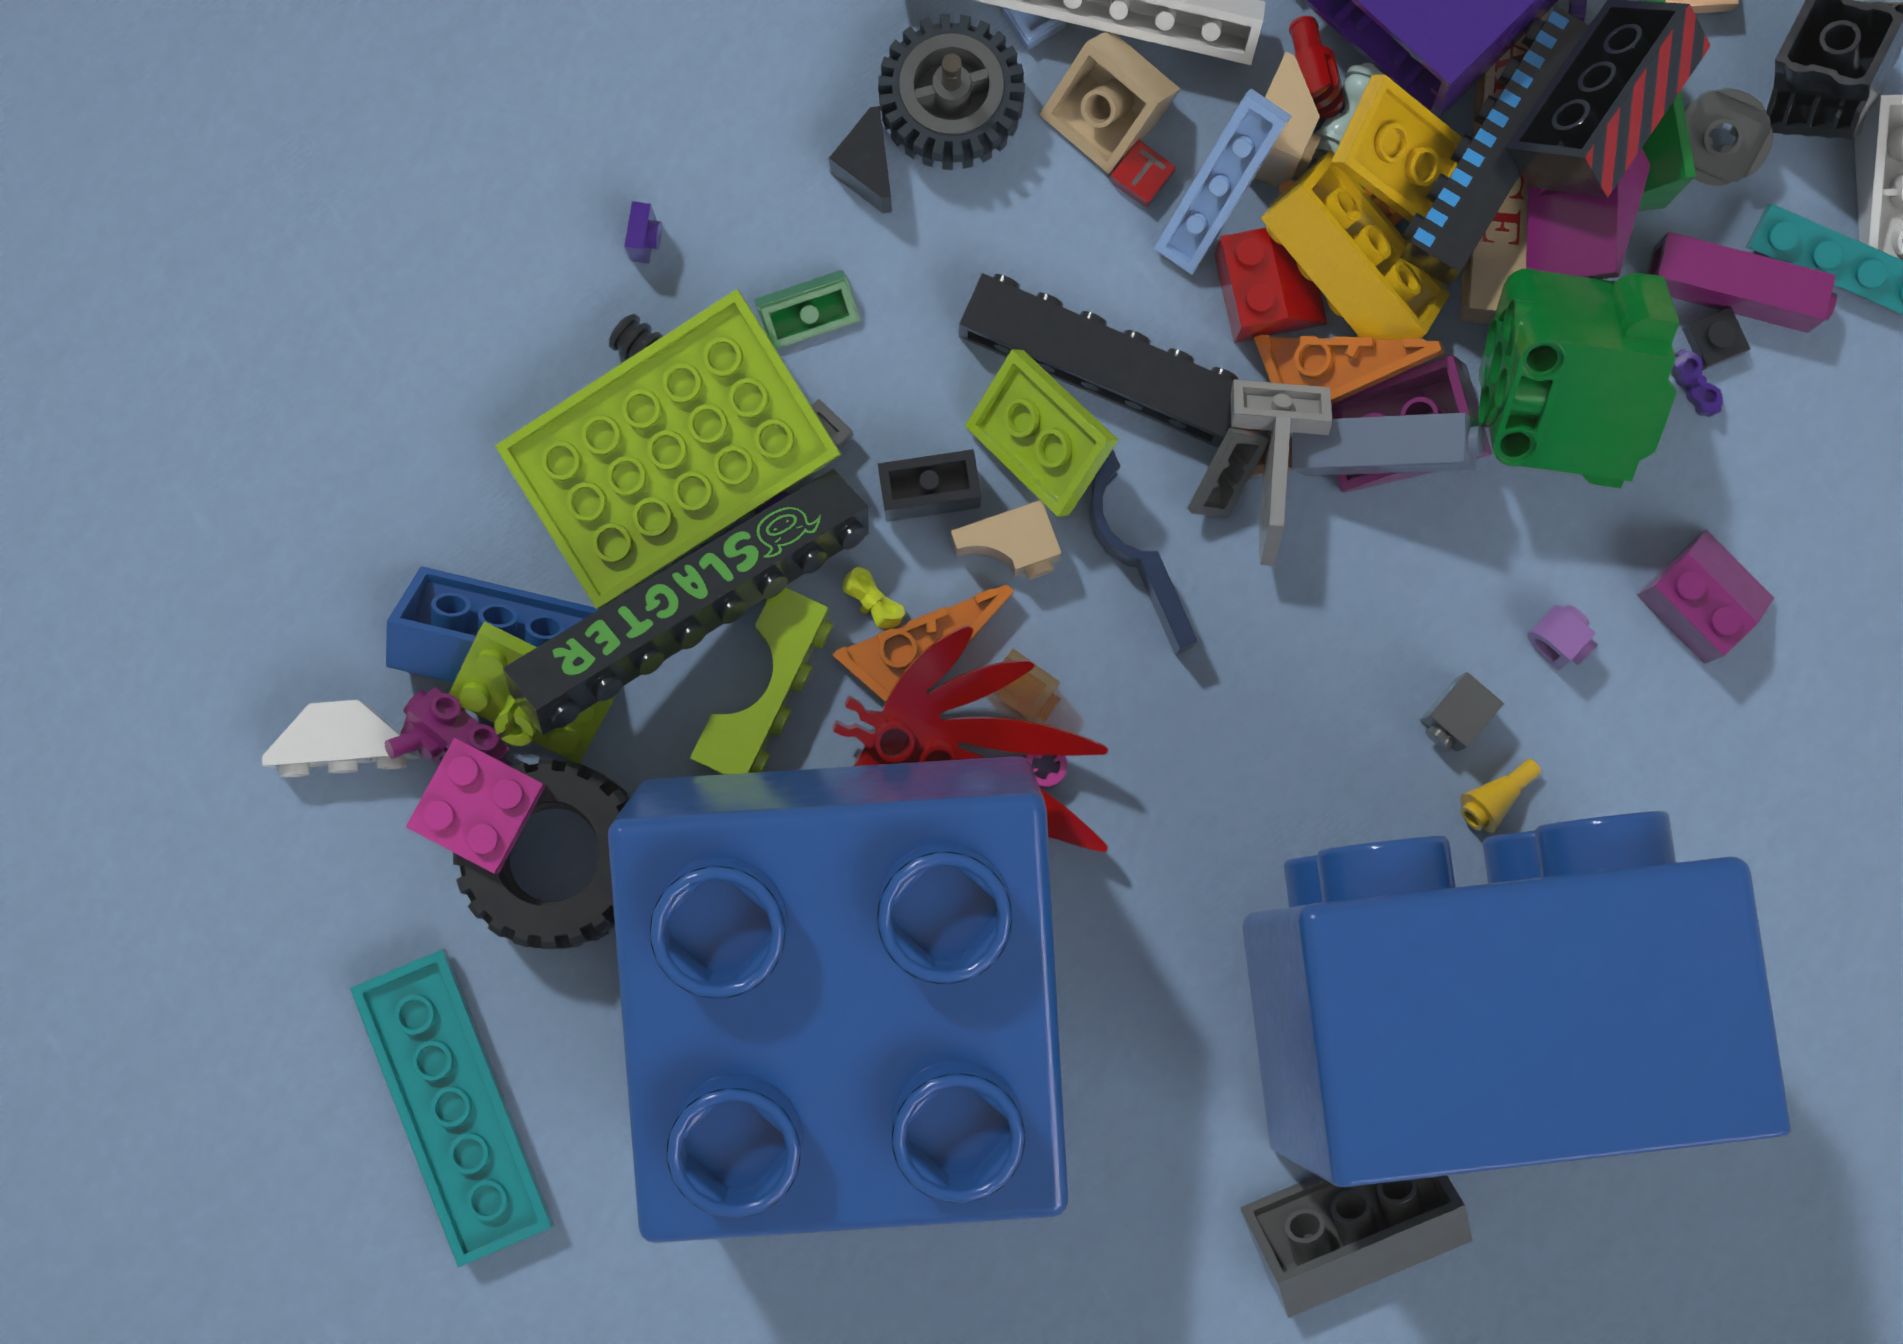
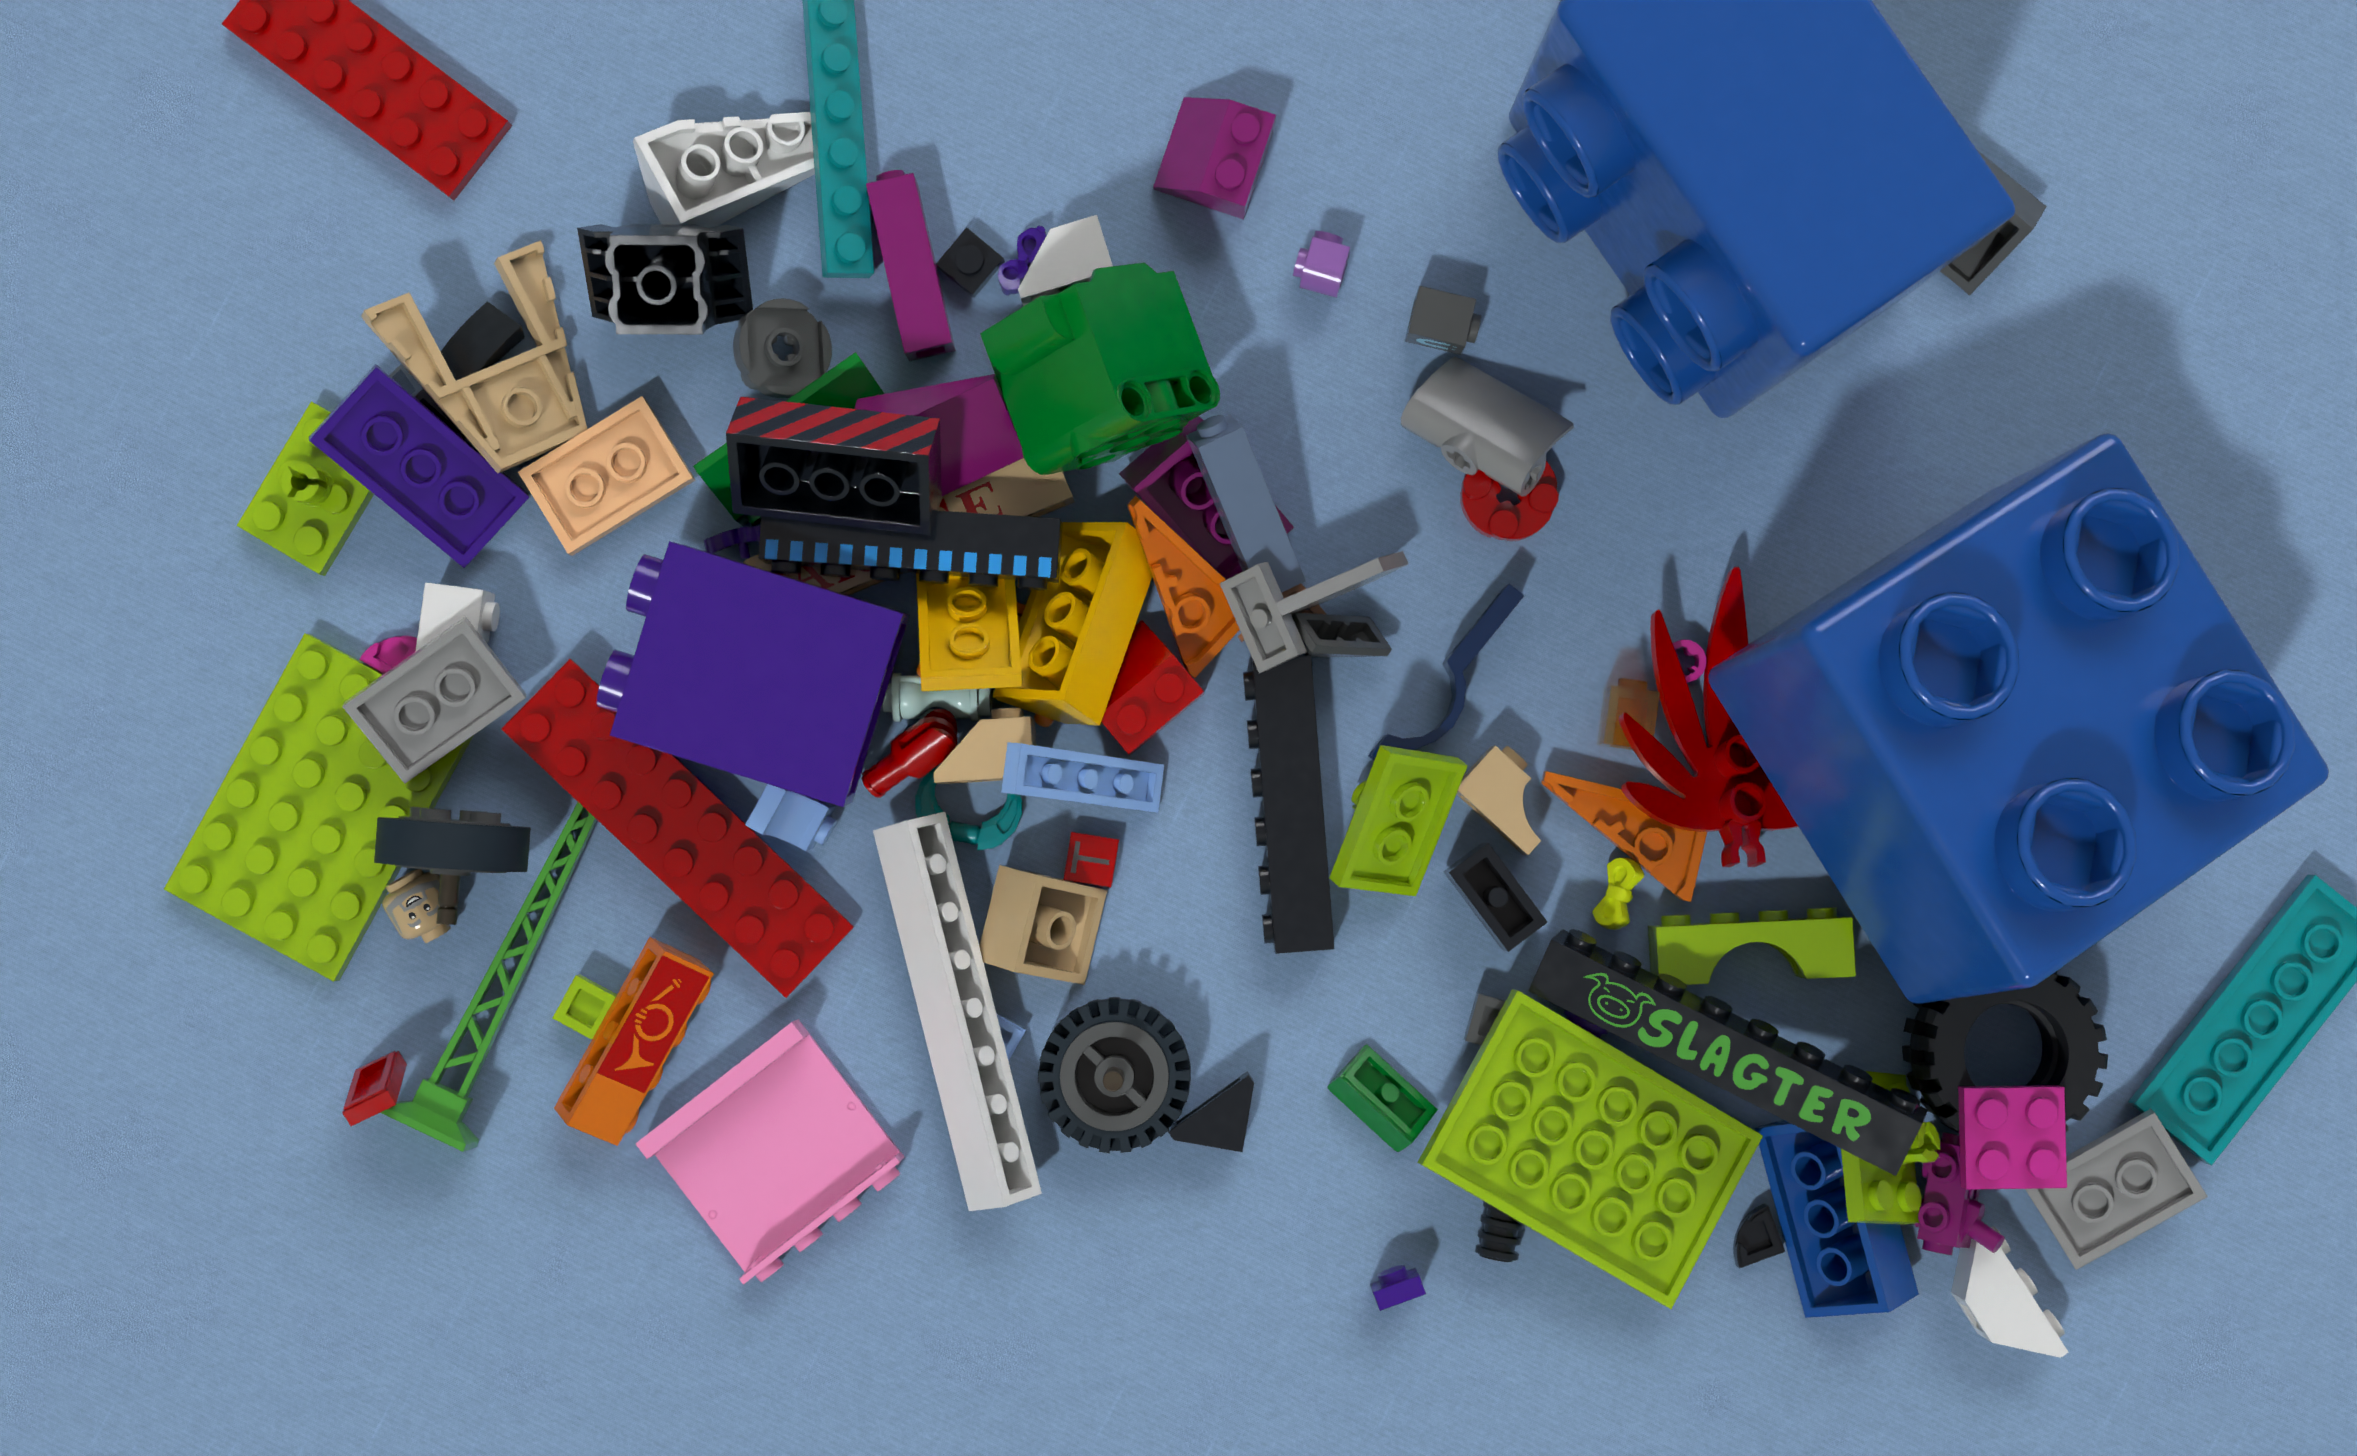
camera: 115 degrees left, 5 degrees up
(376, 891) = (2118, 1189): none -> light grey plate
(511, 561) = (1756, 1238): none -> black tile
(1208, 100) = (992, 832): none -> teal piece
(1257, 715) = (1503, 519): none -> red plate
(1349, 697) = (1484, 425): none -> light grey panel
(1490, 803) = (1503, 254): yellow cone -> none
(1690, 424) = (1065, 259): none -> white slope

